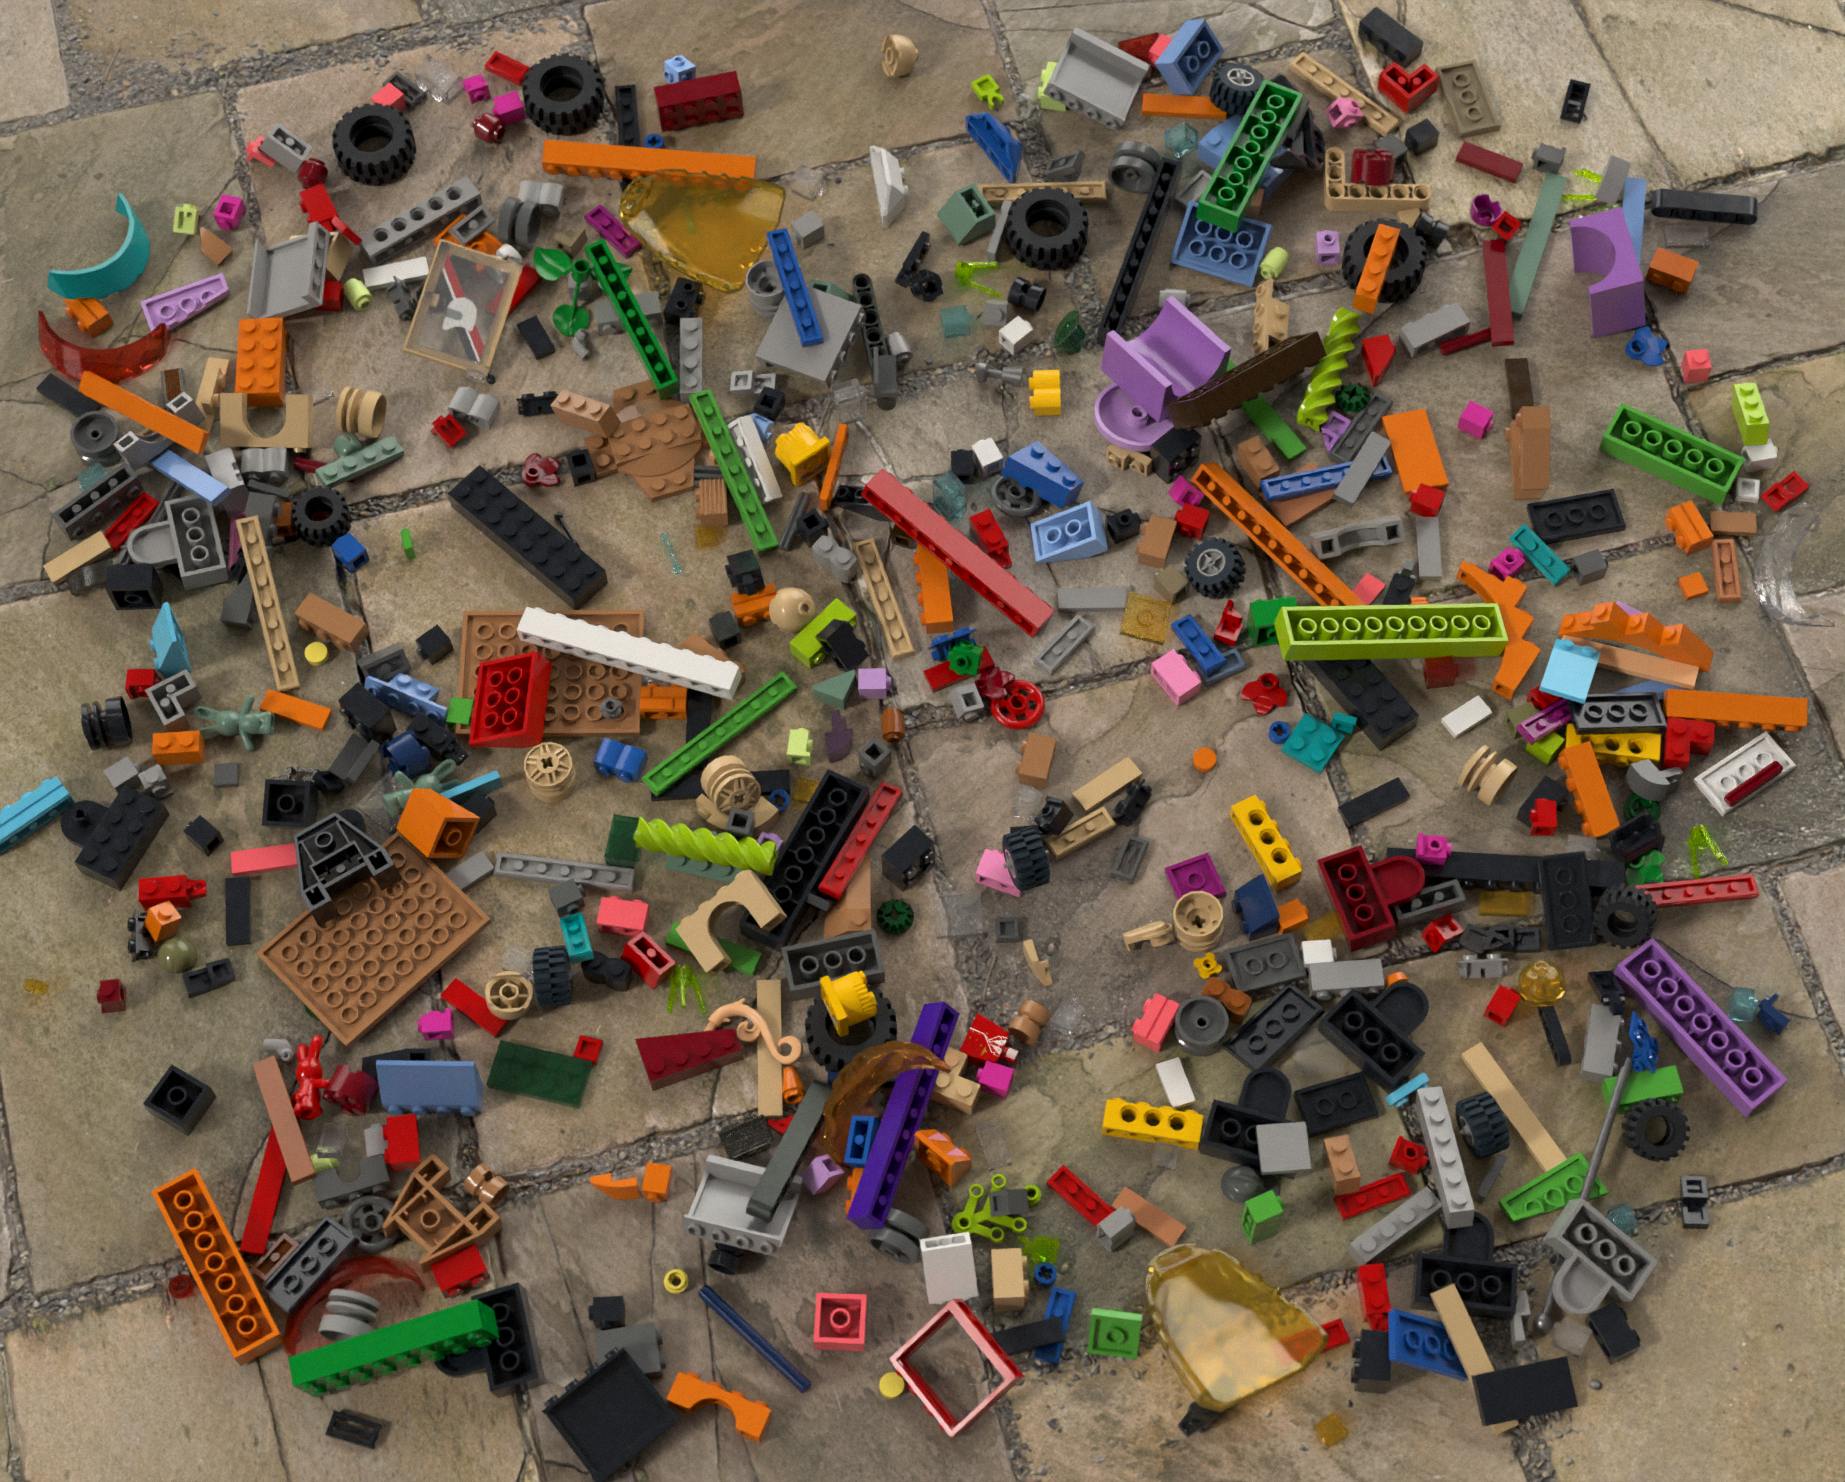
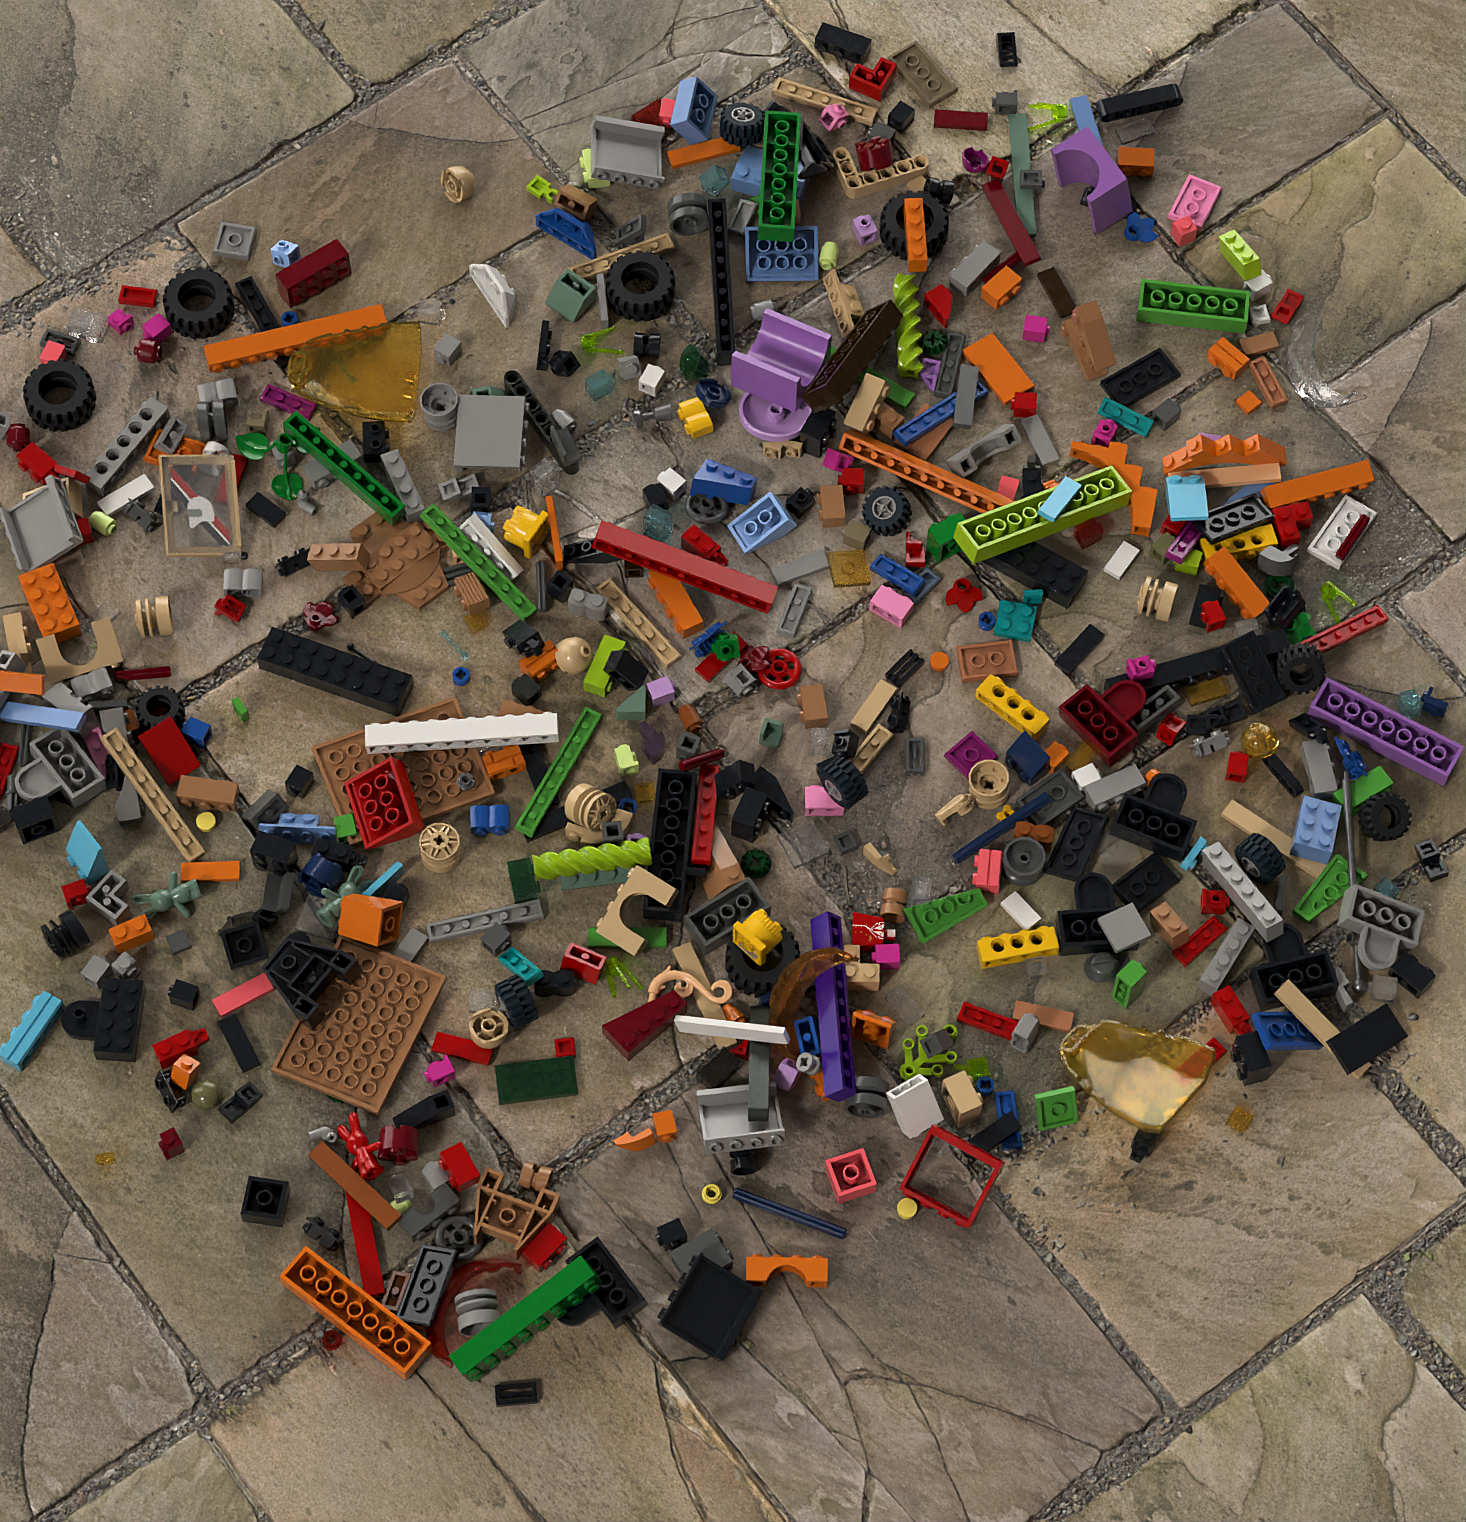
camera: 25 degrees left, 0 degrees up
(224, 1151) = (329, 1236): none -> black hinge
(309, 561) = (169, 750): none -> red tile
(357, 459) = (167, 656): sand green plate -> none
(430, 1087) = (460, 1118): medium blue slope -> none
(623, 916) = (547, 938): coral brick -> none
(635, 42) = (234, 241): none -> light grey tile
(658, 585) = (461, 682): none -> blue bush
(777, 1099) = (732, 1029): none -> white tile
(794, 287) = (464, 399): blue tile -> none
(846, 1171) = (808, 1063): none -> light grey wheel
(882, 776) = (701, 759): none -> dark red axle
(909, 810) = (734, 779): none -> black brick
(944, 832) = (768, 784): none -> black slope
(976, 774) = (771, 733): none -> sand green panel
(1017, 115) = (576, 201): none -> medium nougat brick
(1077, 372) = (713, 393): none -> dark blue tile
(1080, 1053) = (941, 914): none -> bright green wing
(1157, 746) = (914, 657): none -> black tile
(1192, 977) = (1001, 828): none -> dark blue axle
(1241, 439) = (867, 404): none -> tan brick
(1260, 775) = (982, 659): none -> nougat tile
(1415, 620) = (1059, 499): none -> medium azure tile
(1456, 362) = (1001, 288): none -> orange brick
(1542, 253) = (1032, 180): none -> dark grey bracket
(1565, 1114) = (1315, 830): none -> medium blue brick
(1612, 180) = (1063, 104): light grey slope -> none
(1725, 337) = (1195, 200): none -> bright pink tile

